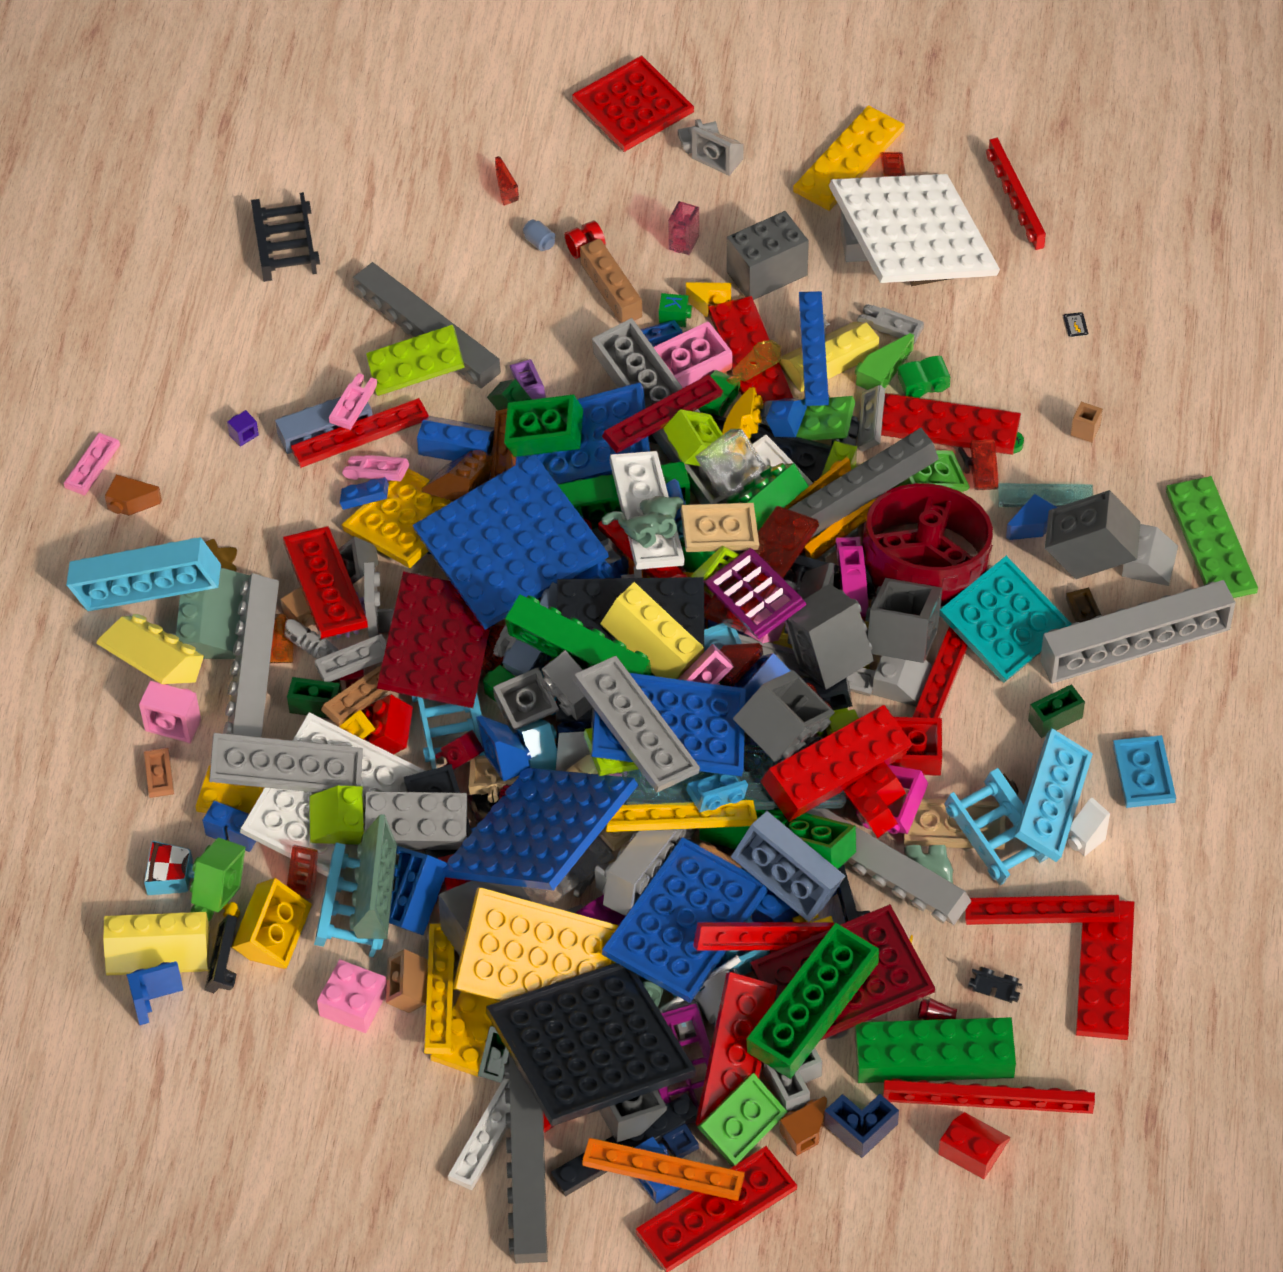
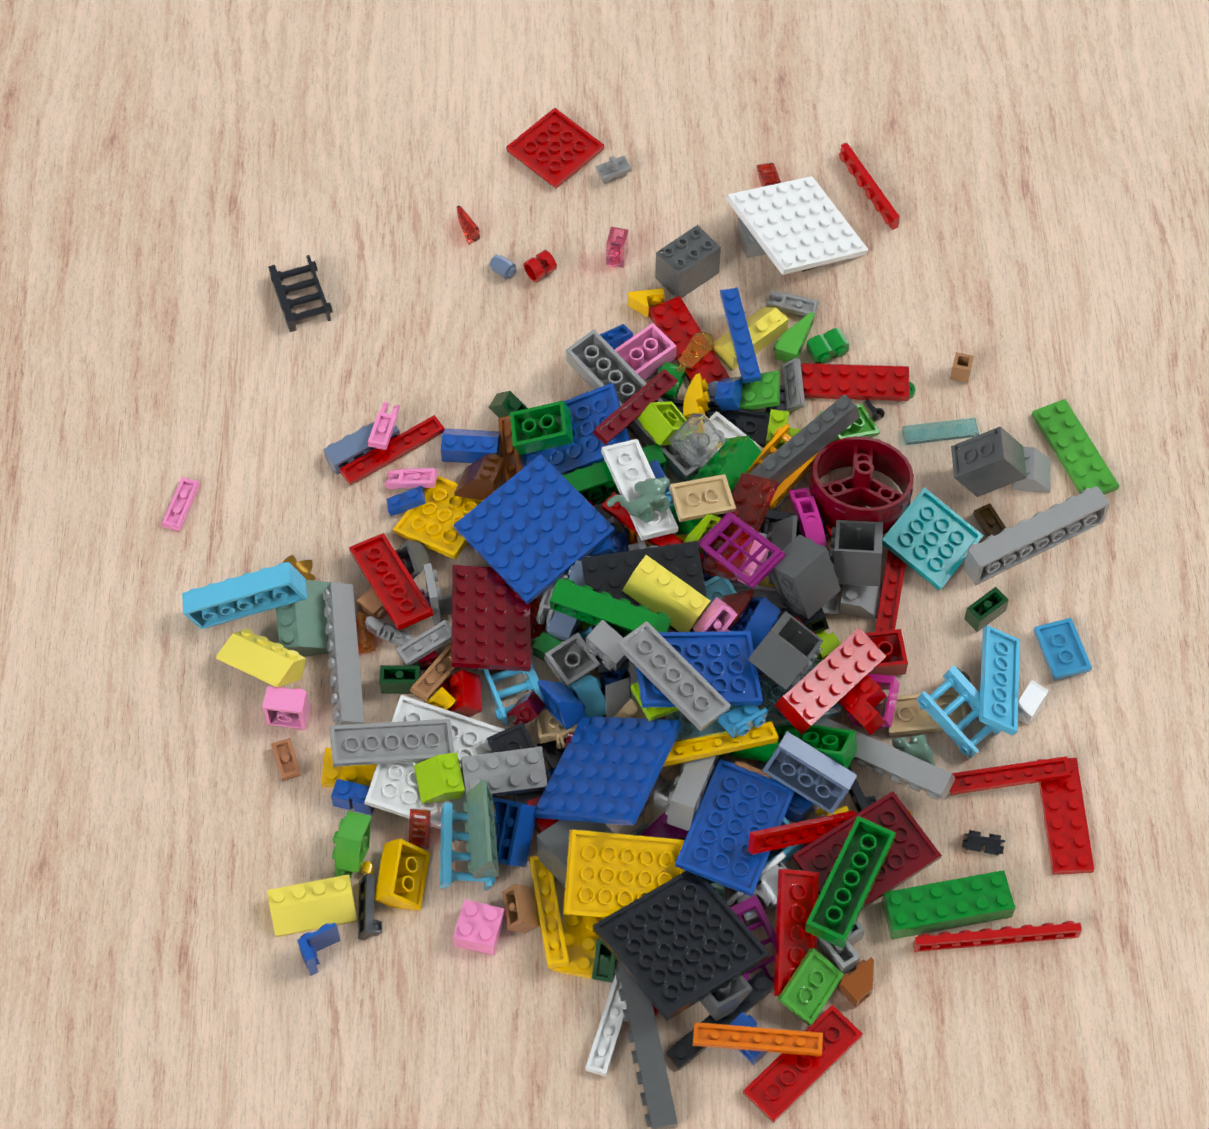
camera: 10 degrees left, 5 degrees up
(131, 496) = (218, 528): dark orange slope -> none
(168, 869) = (310, 840): torso -> none
(242, 428) = (297, 458): dark purple plate -> none
(415, 360) = (426, 384): lime plate -> none
(418, 318) = (428, 353): dark grey brick -> none
(528, 380) = (525, 394): medium lavender slope -> none
(611, 281) = (567, 298): medium nougat brick -> none
(674, 308) = (622, 314): green brick -> none
(681, 1142) = (764, 1011): dark blue plate -> none
(716, 150) = (629, 179): light grey slope -> none
(849, 155) = (732, 171): yellow plate -> none
(861, 1128) = (903, 979): dark blue brick -> none
(934, 1010) = (940, 872): dark red cone -> none
(972, 1144) = (992, 978): red slope -> none
(984, 464) = (890, 413): clear red slope -> none
(1030, 520) = (935, 453): blue slope -> none
(1075, 324) = (935, 287): sticker -> none

